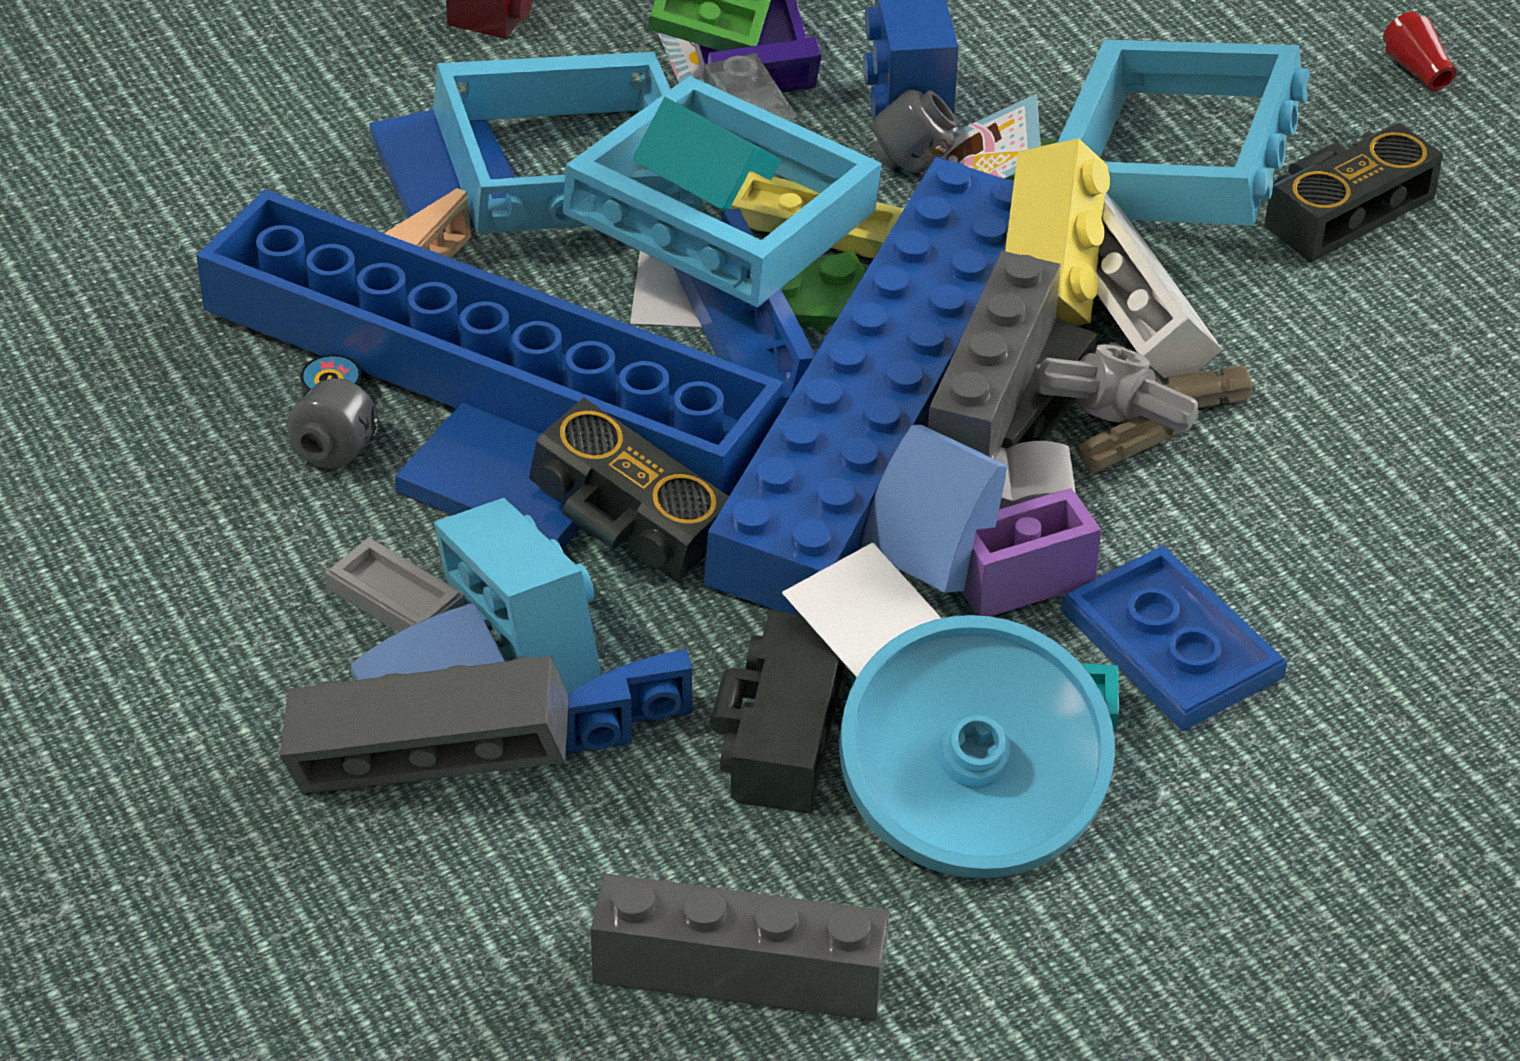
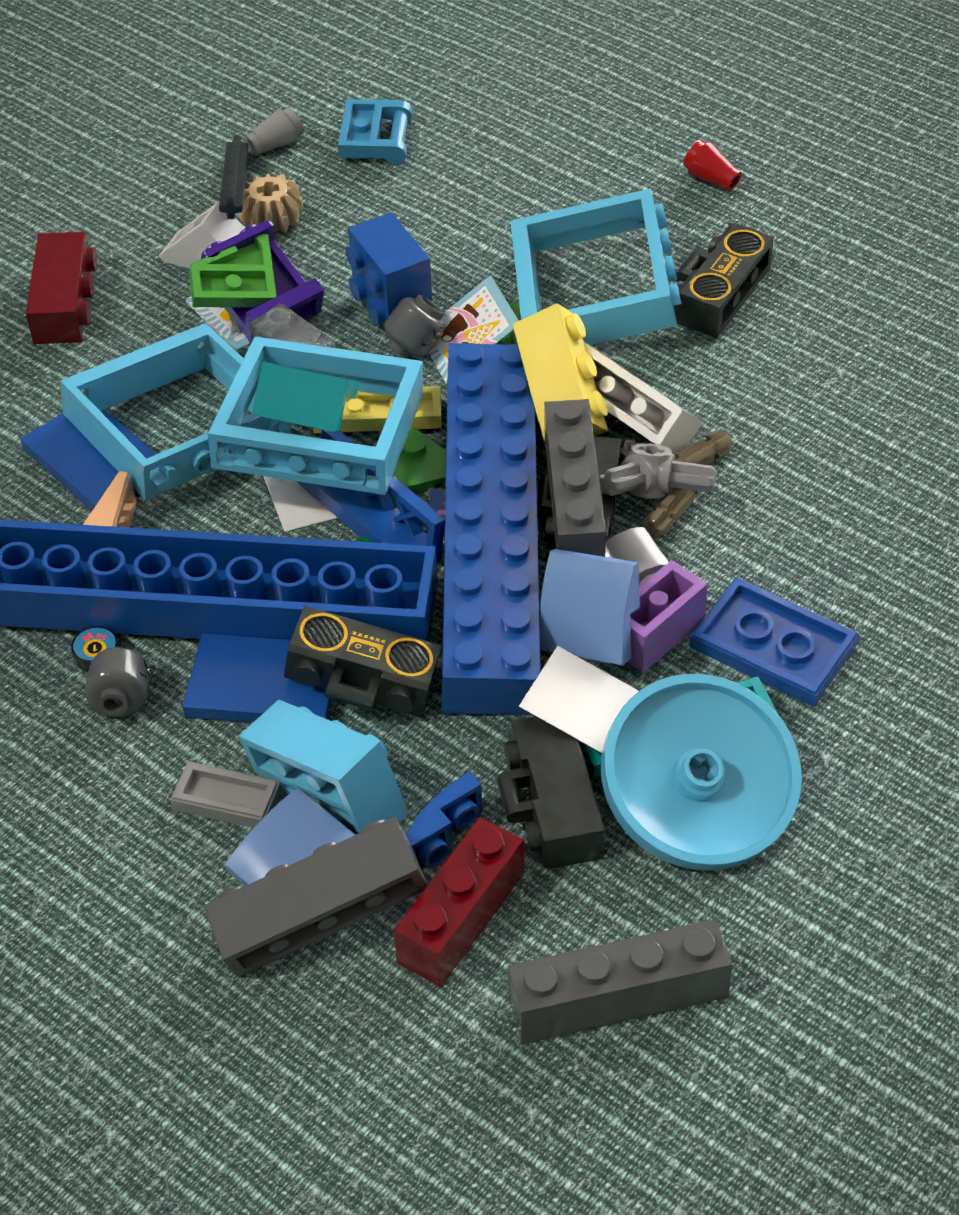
camera: 20 degrees left, 5 degrees up
(598, 793) = (459, 901): none -> dark red brick

